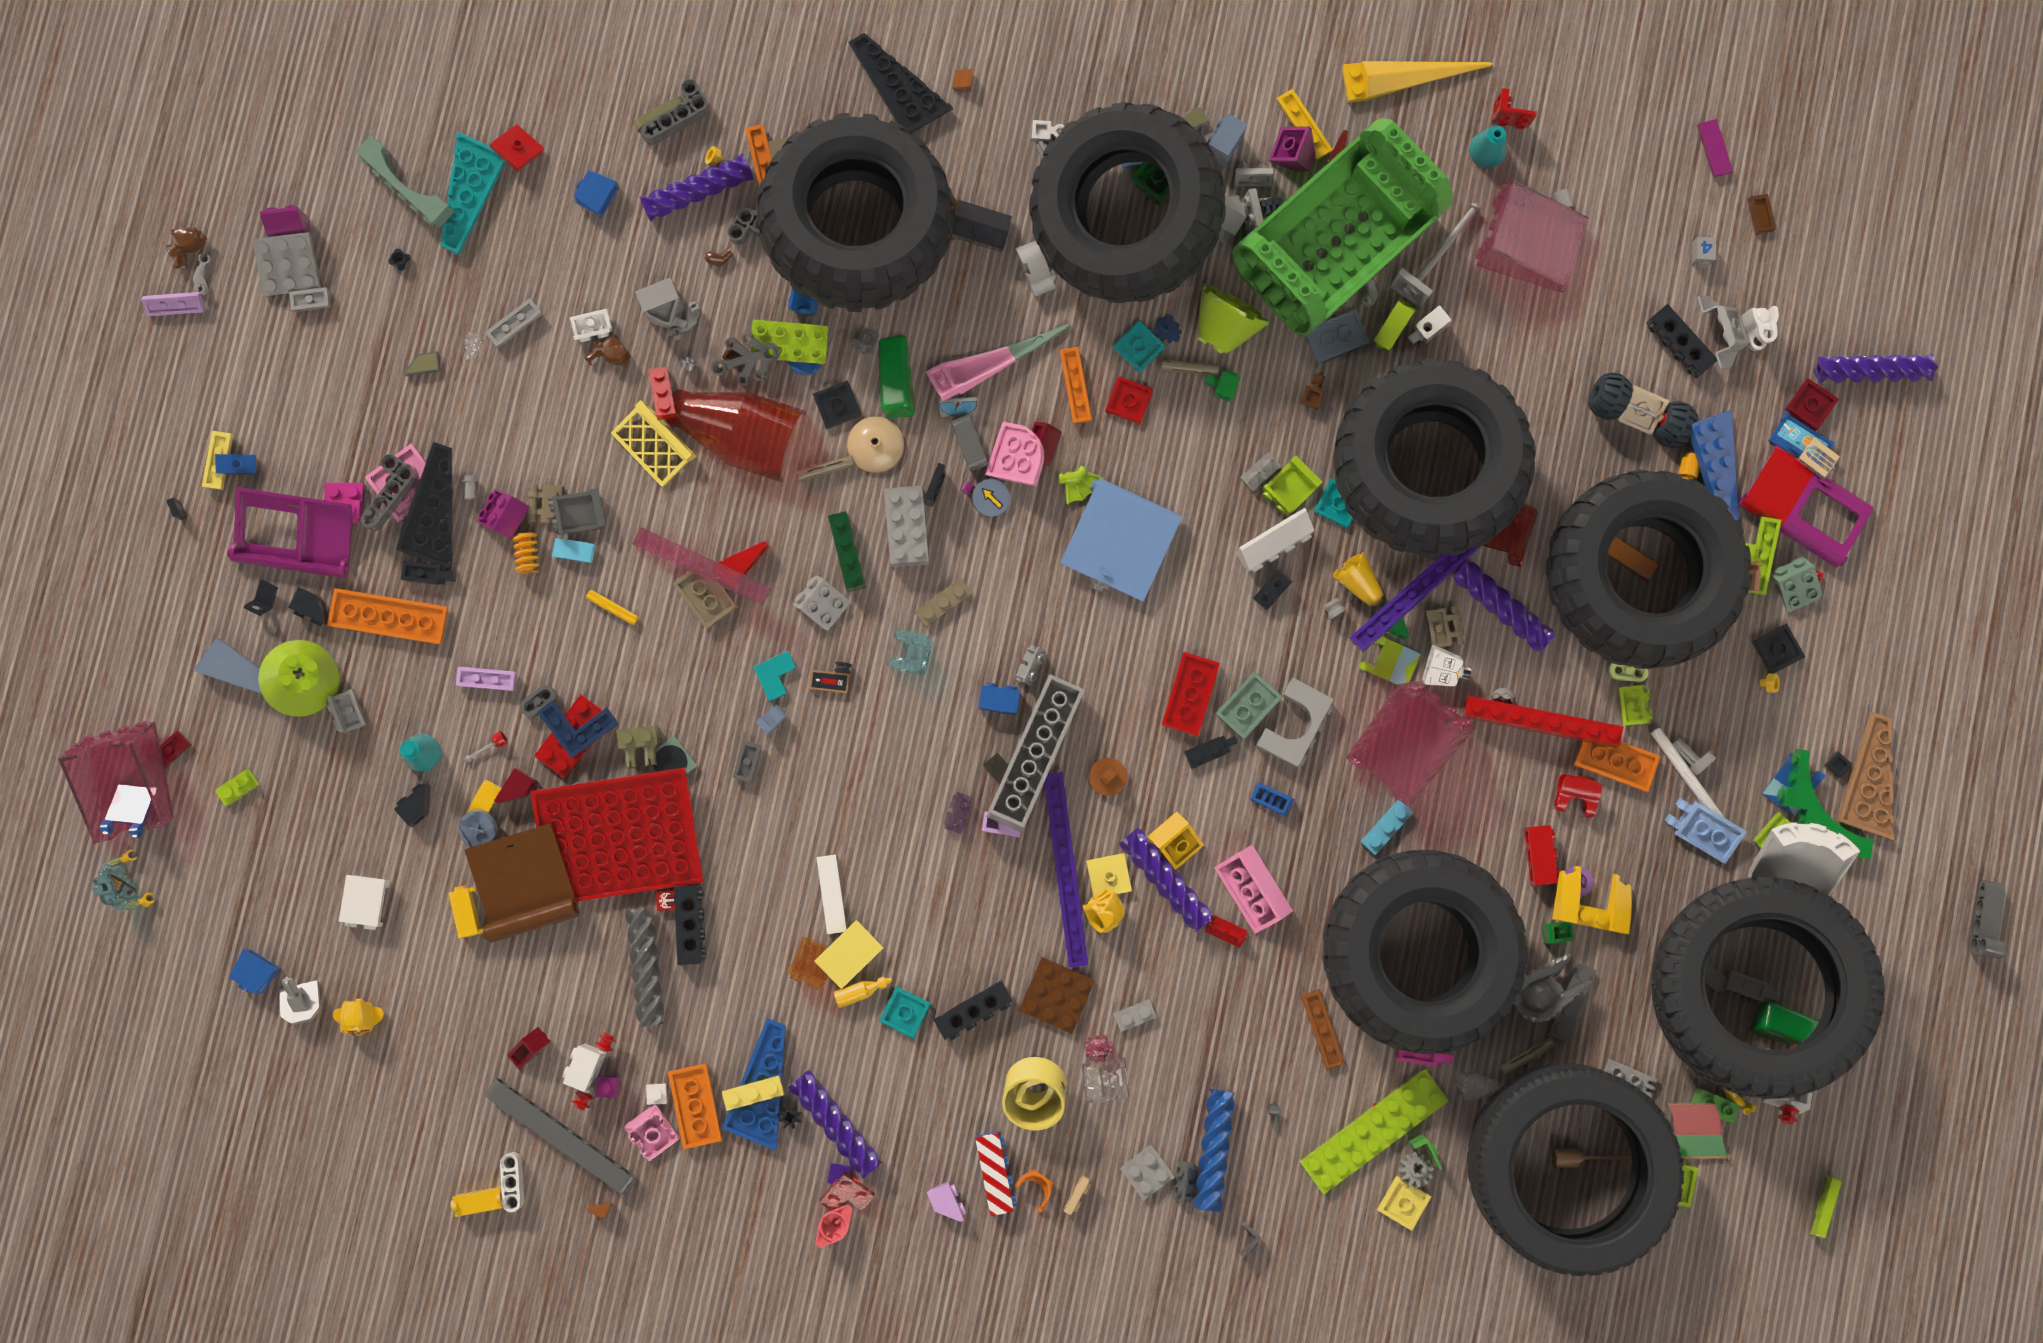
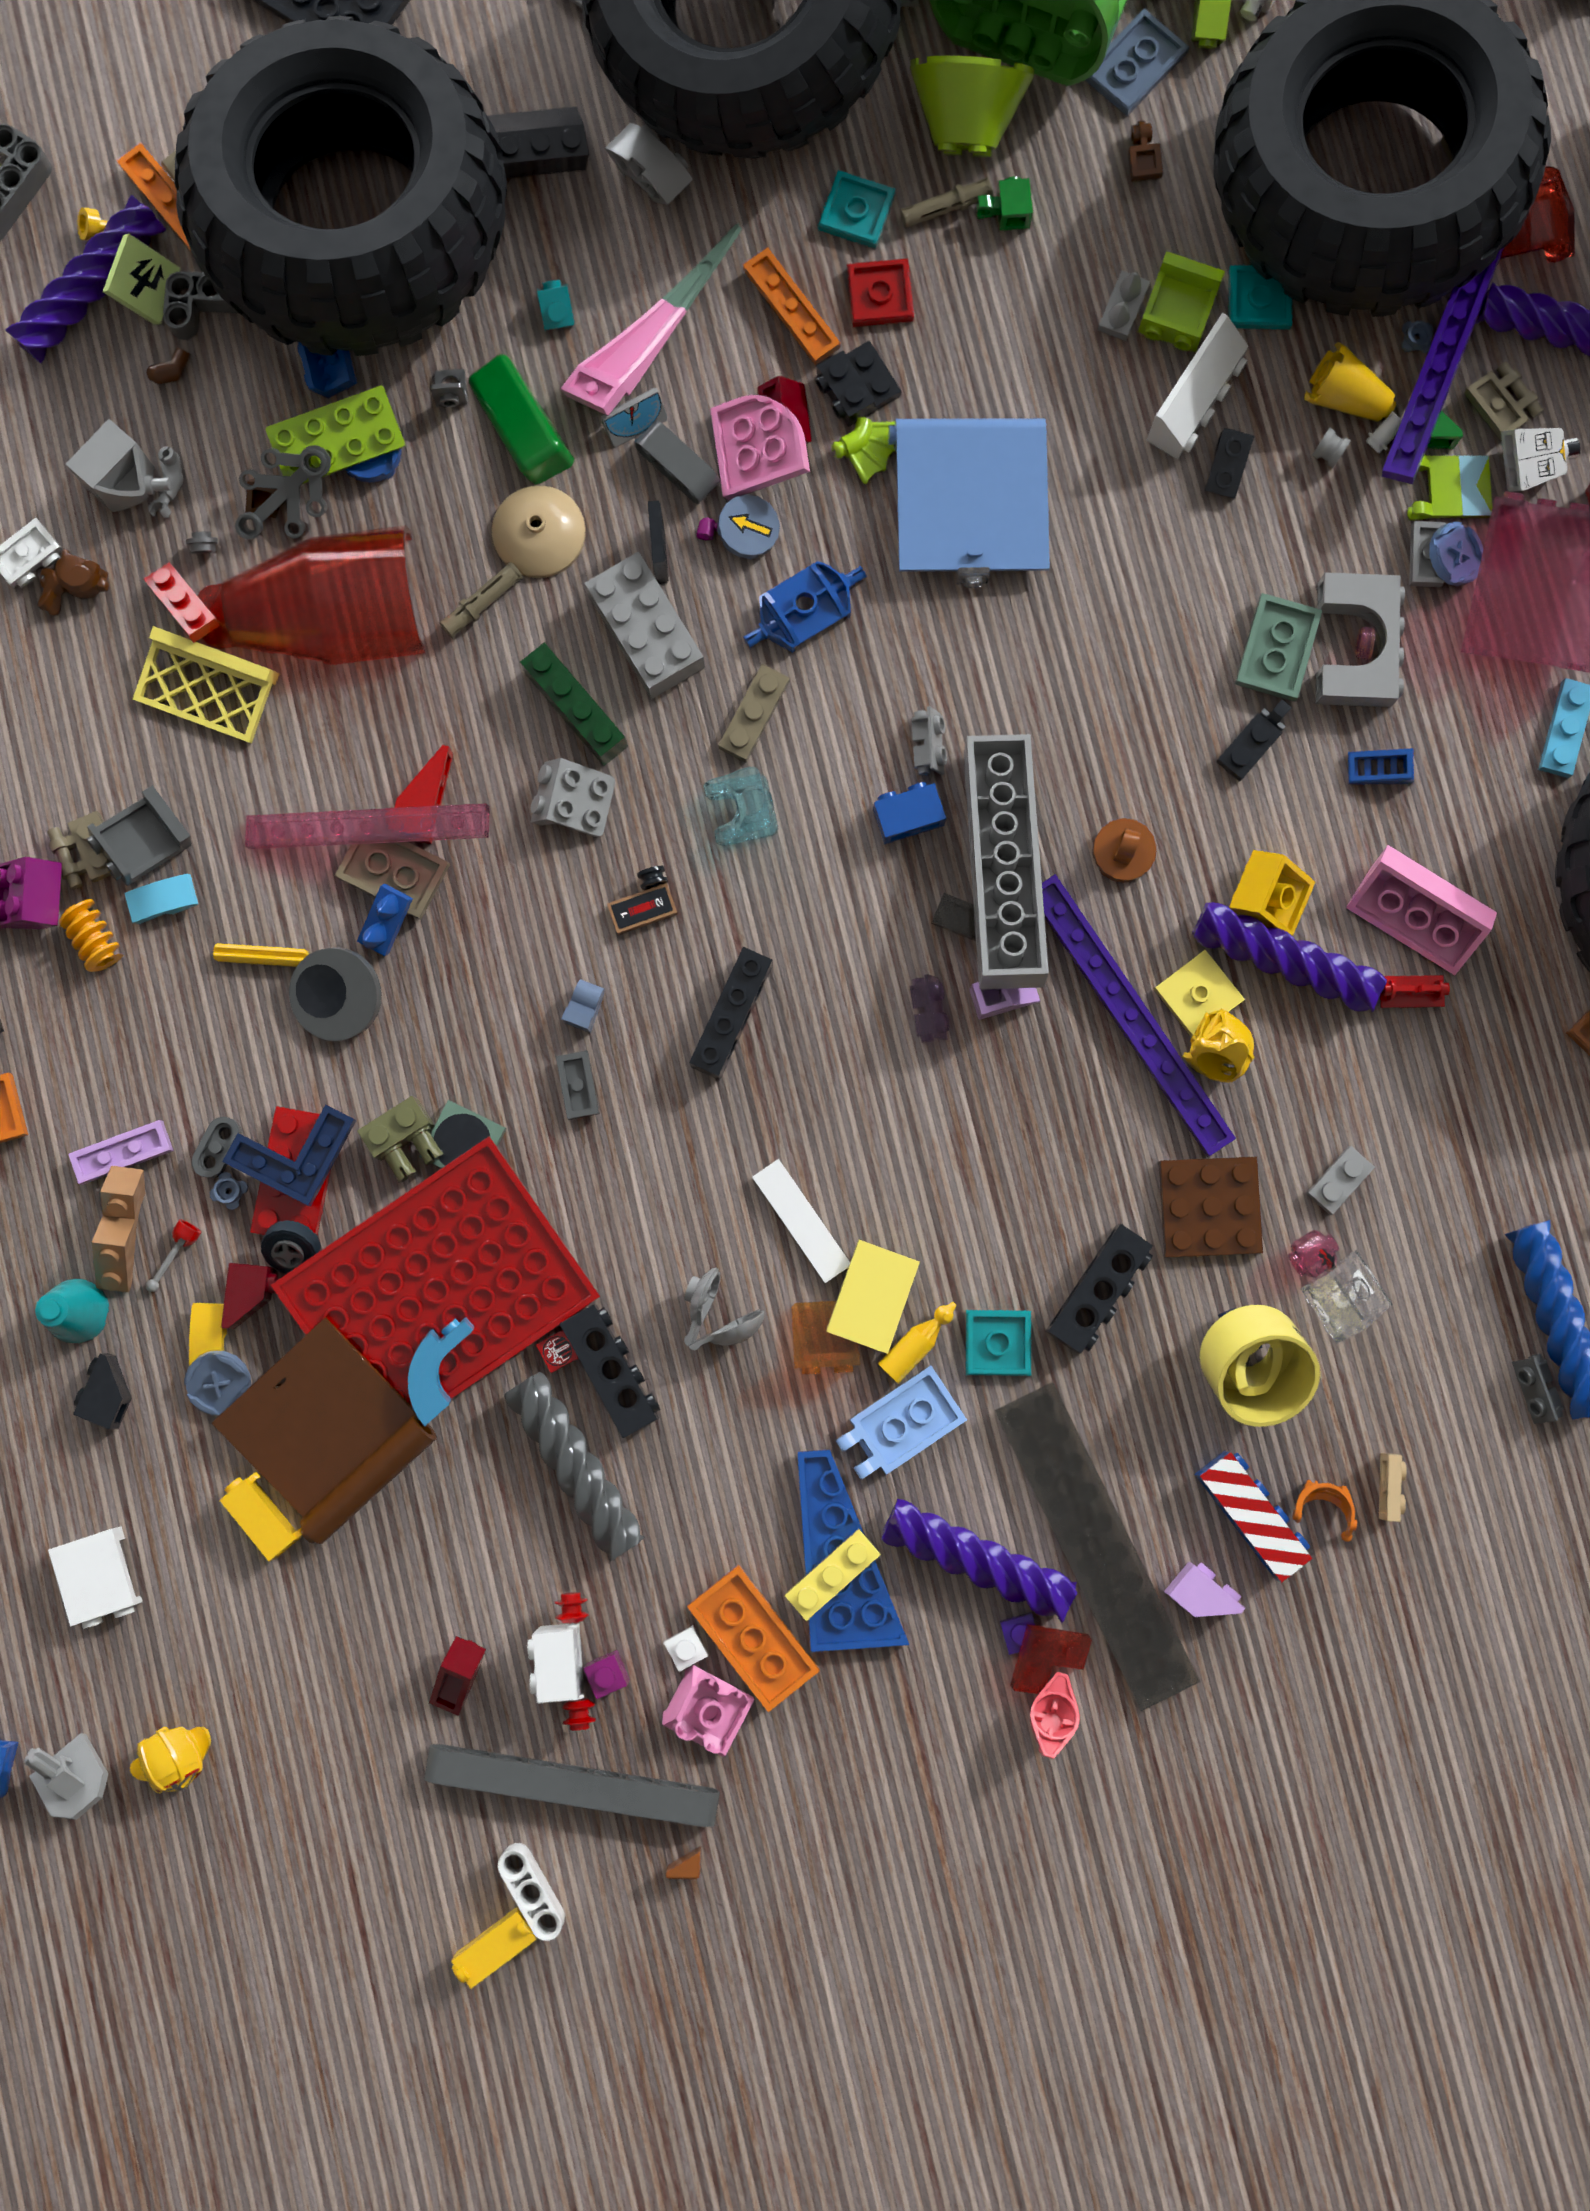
camera: 25 degrees left, 0 degrees up
(463, 721) = (116, 1233): none -> medium nougat arch
(528, 727) = (219, 1193): none -> sand blue plate
(550, 774) = (288, 1245): none -> black wheel
(586, 884) = (424, 1384): none -> dark azure arch
(641, 648) = (335, 994): none -> dark grey piece
(687, 621) = (384, 919): none -> blue tile
(726, 202) = (139, 278): none -> yellowish green tile
(757, 908) = (701, 1294): none -> light grey animal
(769, 673) = (547, 941): teal tile -> none
(792, 1111) = (904, 1592): black gear -> none
(831, 1030) = (903, 1423): none -> light blue tile
(837, 404) = (452, 500): black tile -> none
(848, 763) = (731, 1013): none -> black brick
(902, 1148) = (1096, 1546): none -> clear smoke plate
(946, 322) = (555, 305): none -> teal bracket
(1014, 563) = (790, 626): none -> blue plate
(1090, 445) = (857, 383): none -> black plate
(1147, 1172) = (1476, 1403): light grey plate -> none
(1168, 329) = (886, 165): dark blue piece -> none
(1190, 694) = (1185, 671): red plate -> none
(1297, 726) = (1365, 643): none -> clear pink tile
(1357, 693) = (1421, 568): none -> light grey plate
(1365, 615) = (1384, 433): none -> white pin
(1371, 699) = (1456, 553): none -> medium blue tile
(1414, 563) = (1421, 329): none -> sand blue plate

